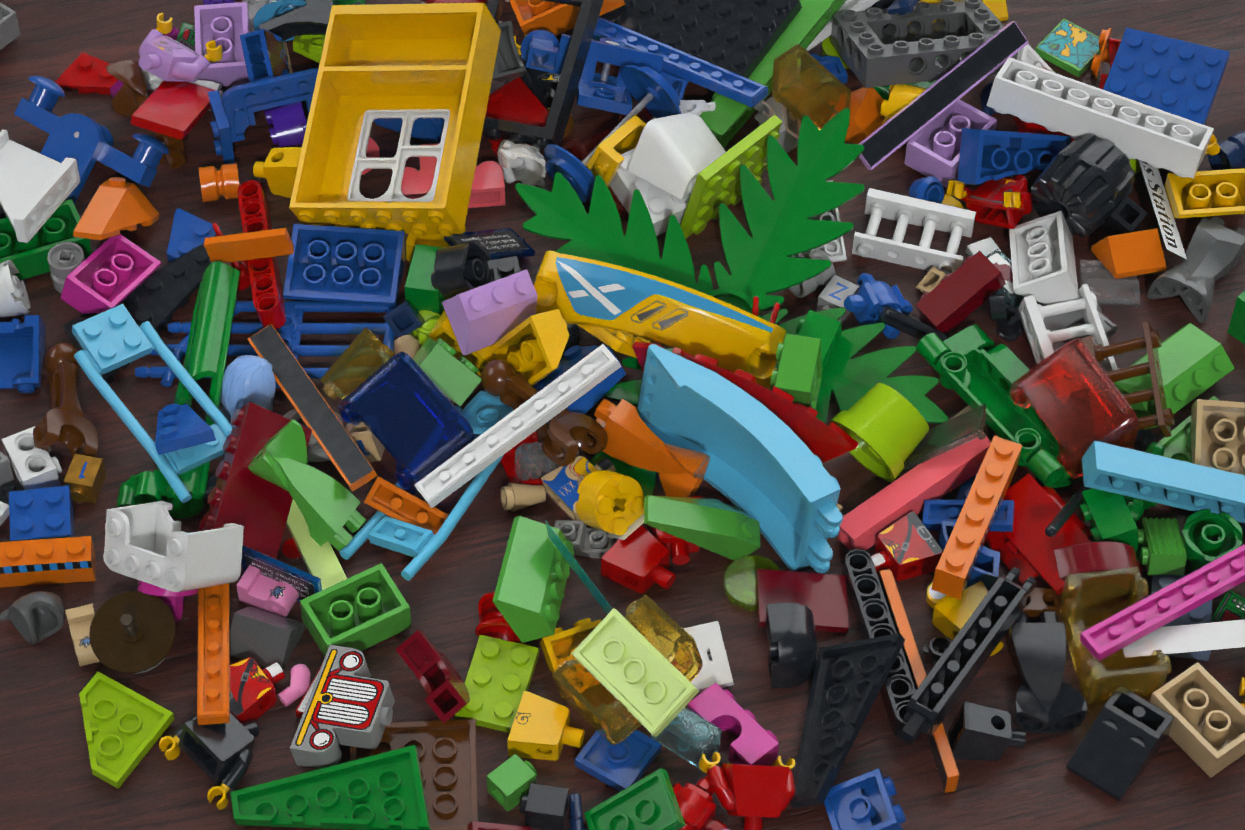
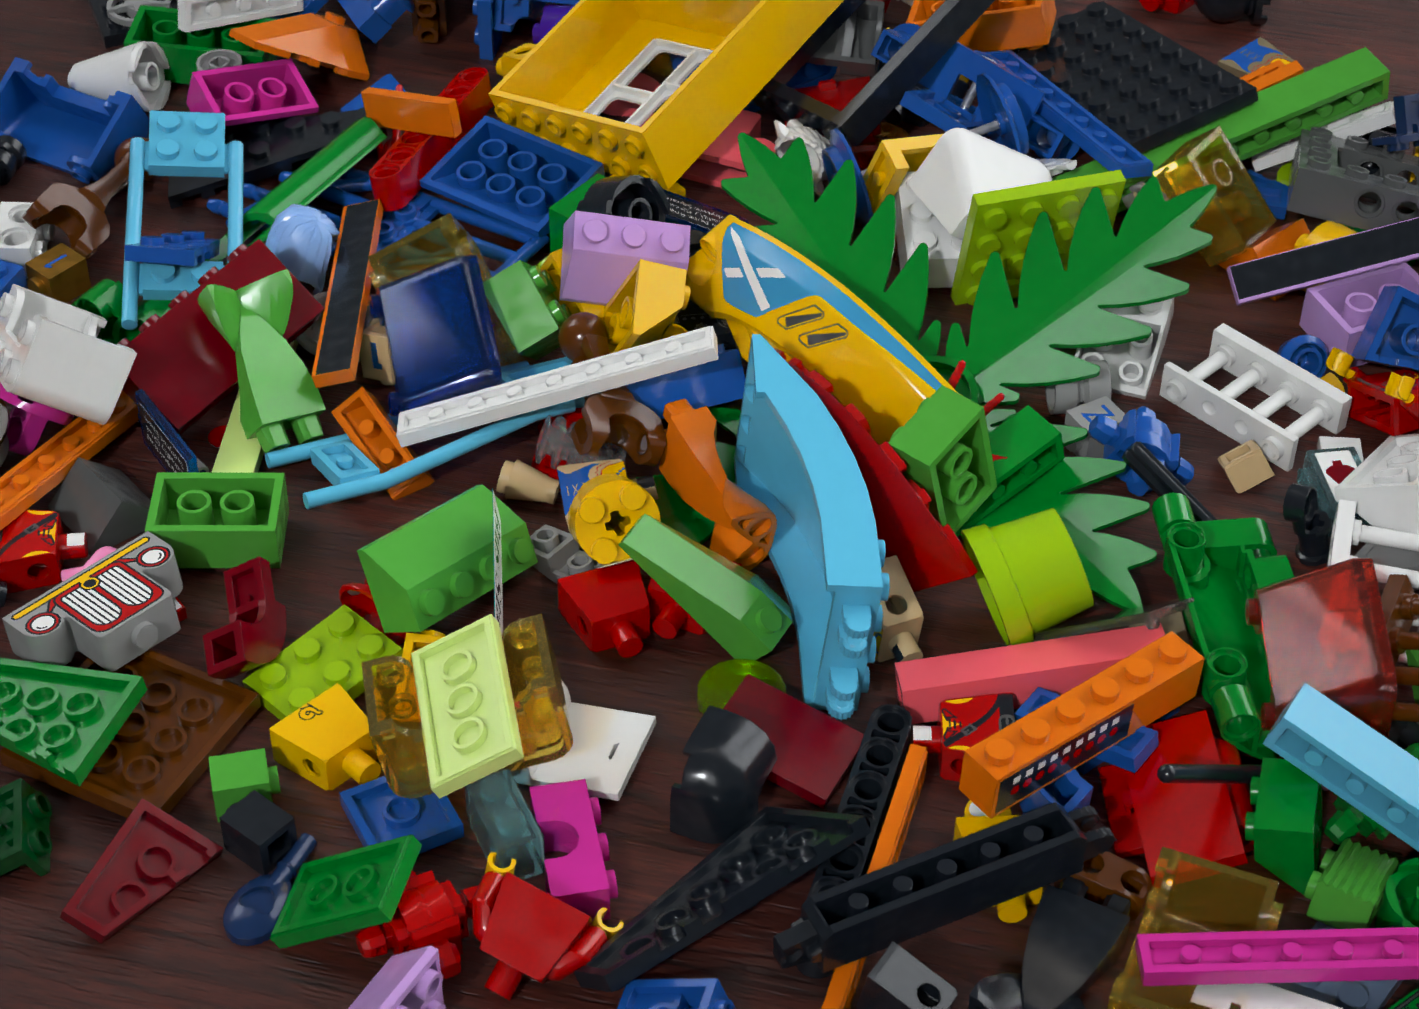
camera: 30 degrees right, 10 degrees down
(219, 182) = (444, 59): orange wheel -> none
(265, 592) = (140, 456): bright pink leg -> none
(404, 319) = (531, 245): dark blue slope -> none
(960, 293) = (1261, 474): dark red brick -> none
(1094, 557) = (1236, 847): dark red arch -> none

